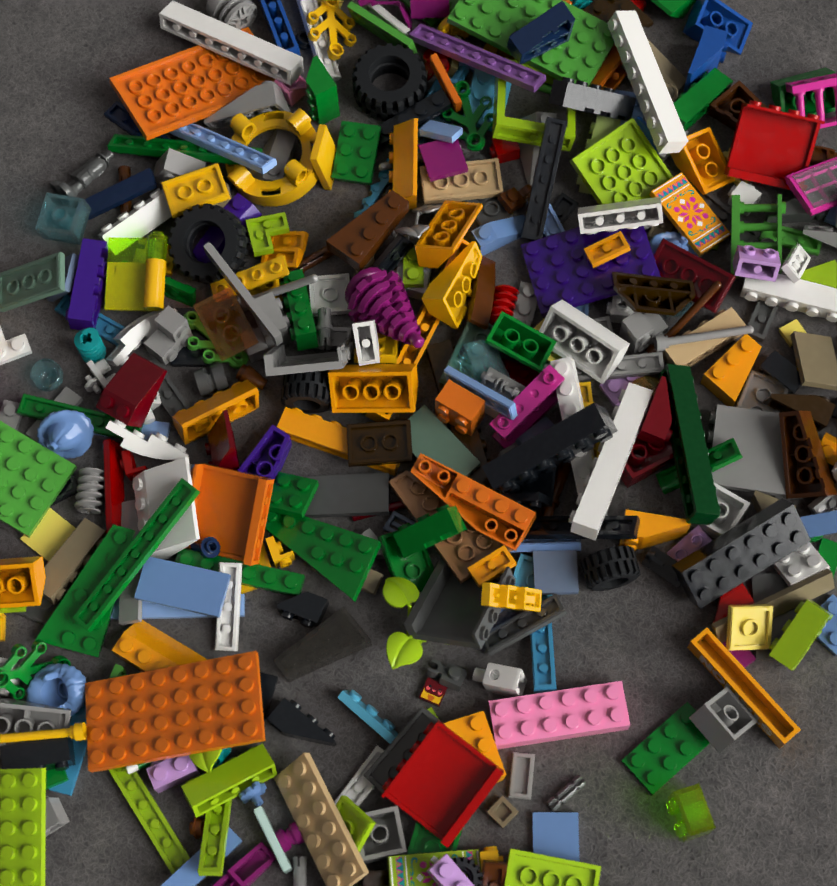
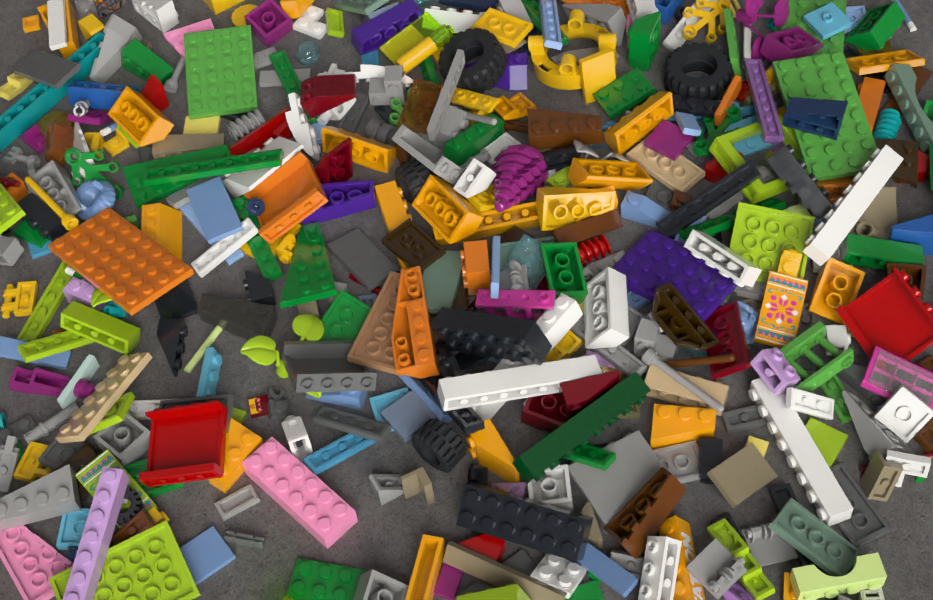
camera: 55 degrees right, 15 degrees down
(27, 325) = (334, 22): none -> lime tile
(66, 433) = (273, 86): medium blue piece -> none
(90, 345) = (345, 55): teal piece -> none
(123, 833) = (24, 302): none -> yellow plate
(253, 793) = (103, 349): medium blue plant -> none
(261, 230) = (512, 82): lime plate -> none
(292, 494) = (333, 226): green plate -> none
(335, 723) = (201, 351): none -> yellowish green bar
(429, 530) = (366, 309): green wedge -> none
(491, 566) = (366, 362): light orange plate -> none
(502, 812) = (198, 506): dark tan plate -> none
(511, 597) = (351, 386): yellow slope -> none
(565, 183) = (726, 221): none -> green plate
(607, 249) = (689, 271): light orange plate -> none
(610, 638) = (386, 486): none -> light grey slope
(637, 607) = (417, 482): none -> dark tan panel
(654, 173) = (789, 262): none -> yellow bracket
(749, 627) = (469, 567): light yellow tile -> none
(820, 406) = (697, 497): dark brown slope -> none

